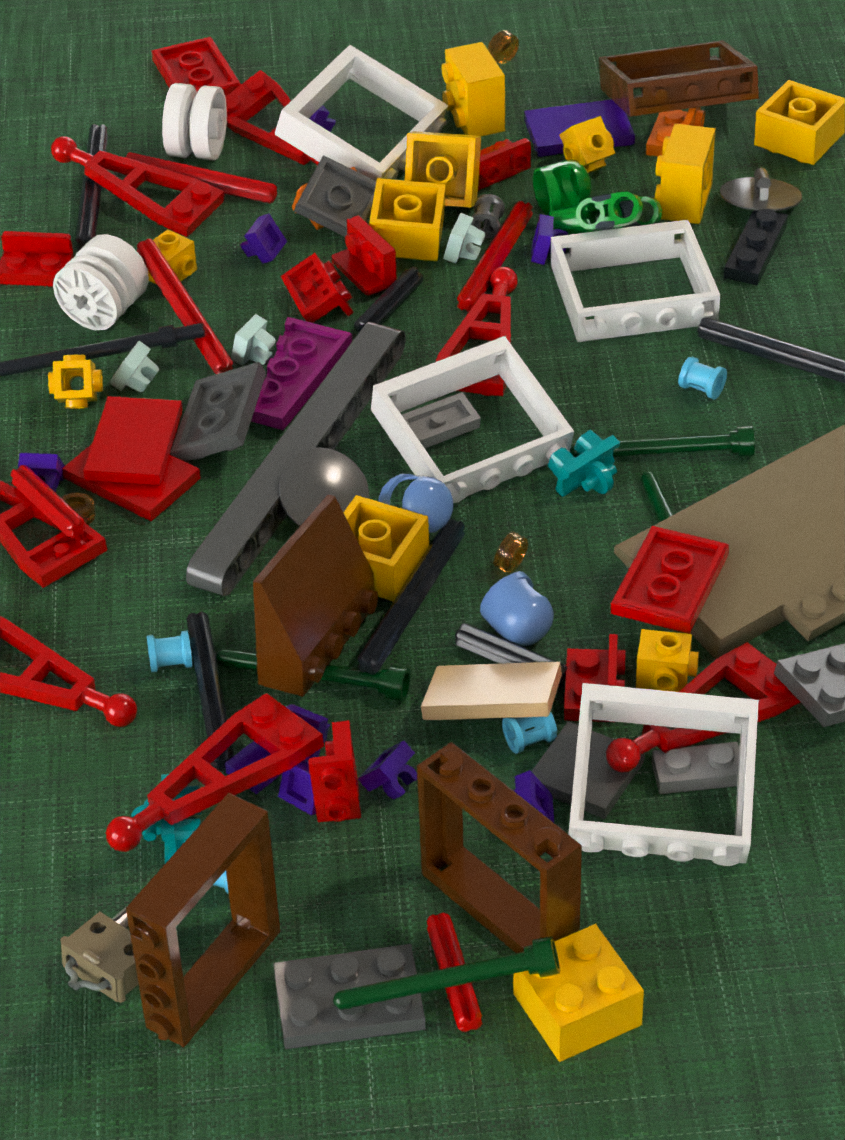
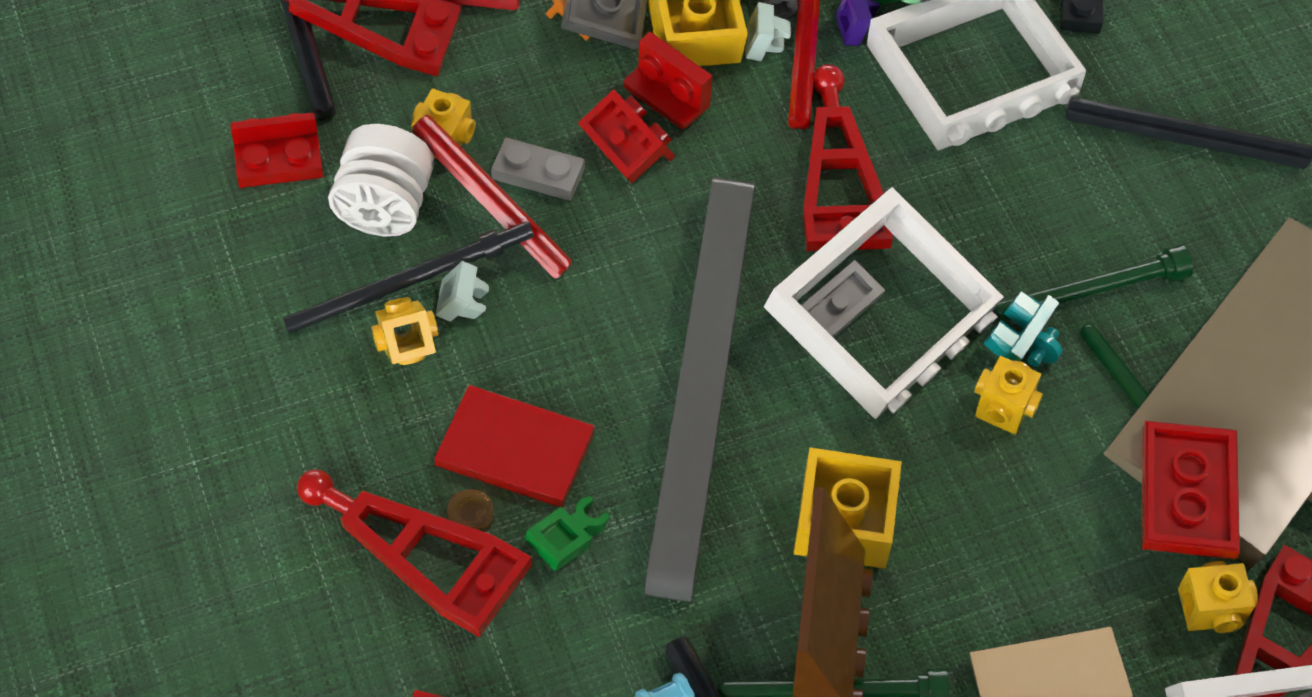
camera: 20 degrees left, 15 degrees up
(45, 466) = (416, 465): dark purple tile -> none
(48, 501) = (446, 520): red axle -> none
(133, 440) = (506, 404): red tile -> none
(140, 534) = (565, 536): none -> green plate
(219, 413) = (590, 344): dark grey plate -> none
(235, 302) = (538, 169): none -> light grey plate
(253, 342) = (587, 228): light aqua tile -> none
(263, 239) = (537, 72): dark purple tile -> none
(298, 368) = (650, 252): magenta wing -> none
(316, 474) = (755, 435): dark grey shield -> none
(391, 298) = (712, 136): black axle -> none
(410, 597) = (908, 566): black axle -> none
(423, 496) = (887, 436): medium blue helmet -> none
(498, 649) = (1032, 613): axle -> none
(511, 552) = (990, 475): clear orange tile -> none
(517, 610) = (1037, 563): medium blue helmet -> none
(550, 500) = (1008, 394): none -> yellow brick
(591, 667) = (1147, 633): red bracket -> none
(702, 377) = (1100, 183): medium azure bush -> none

